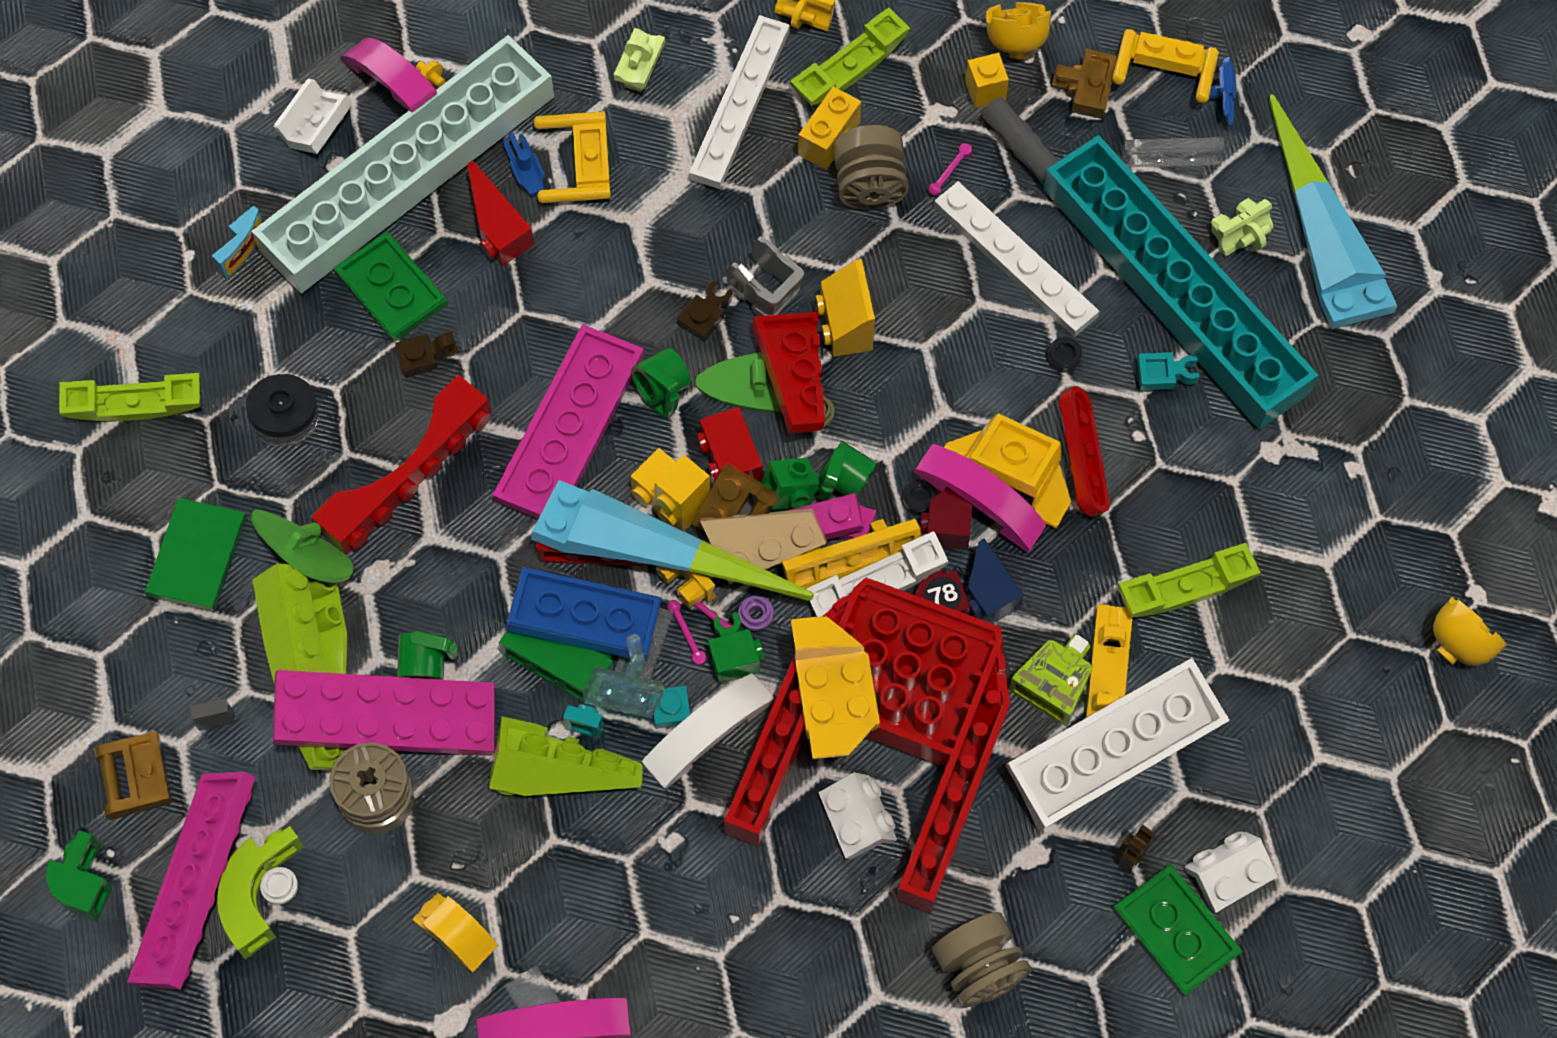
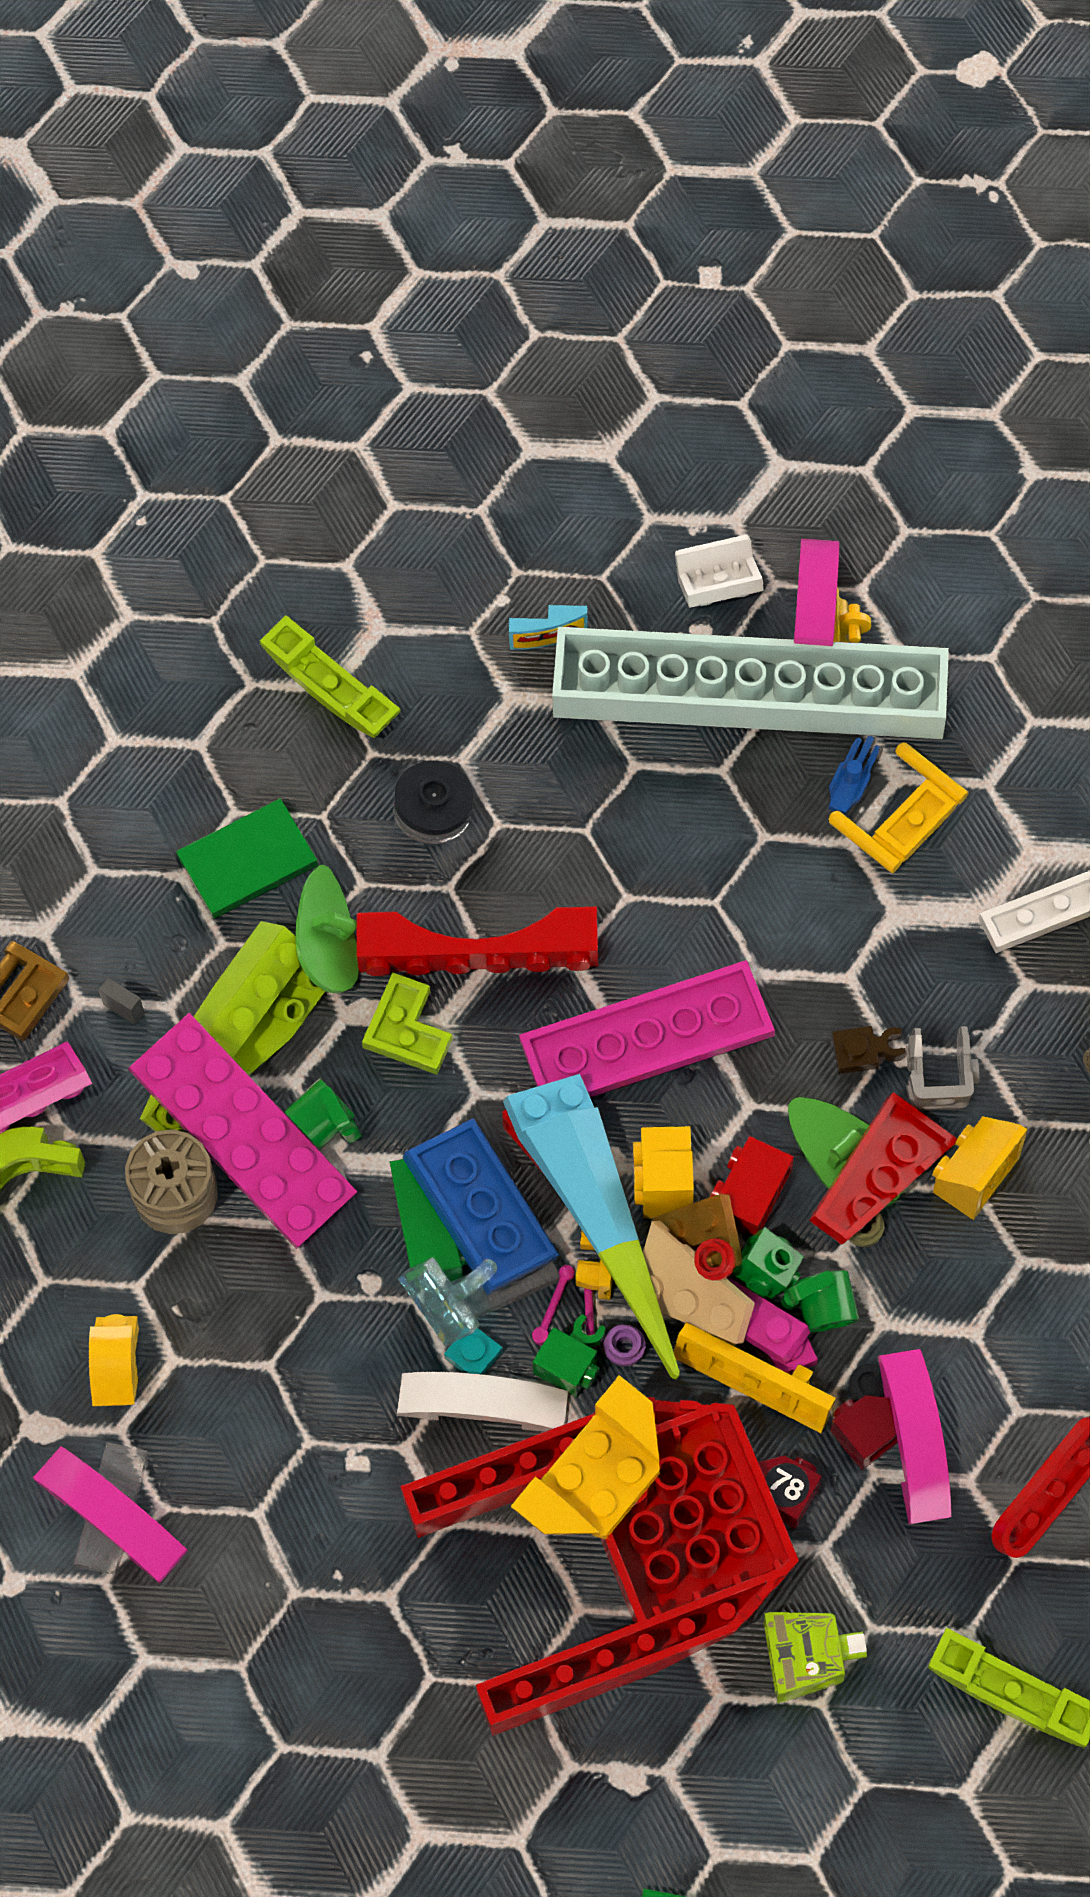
camera: 50 degrees right, 0 degrees up
(279, 885) = (30, 1188): white plate -> none
(390, 286) = (631, 779): green tile -> none
(415, 566) = (396, 1030): none -> lime plate
(420, 354) = (593, 858): dark brown plate -> none
(500, 225) = (771, 803): red slope -> none
(537, 764) = (322, 1294): lime wedge -> none
(584, 720) = (391, 1293): teal plate -> none
(639, 59) = (1046, 771): yellowish green hips -> none
(660, 380) = (759, 1070): green piece -> none
(753, 504) = (703, 1259): none -> red plate
(858, 814) = (522, 1595): white bracket -> none
(899, 571) = (765, 1424): white slope -> none
(985, 967) = (483, 1806): dark tan wheel -> none
(991, 588) = (837, 1520): dark blue slope -> none
(1022, 460) = (983, 1439): yellow piece -> none
(1109, 663) = (857, 1697): yellow hinge -> none
(1116, 743) = (792, 1758): white arch -> none
(1134, 848) = (712, 1860): dark brown plate -> none

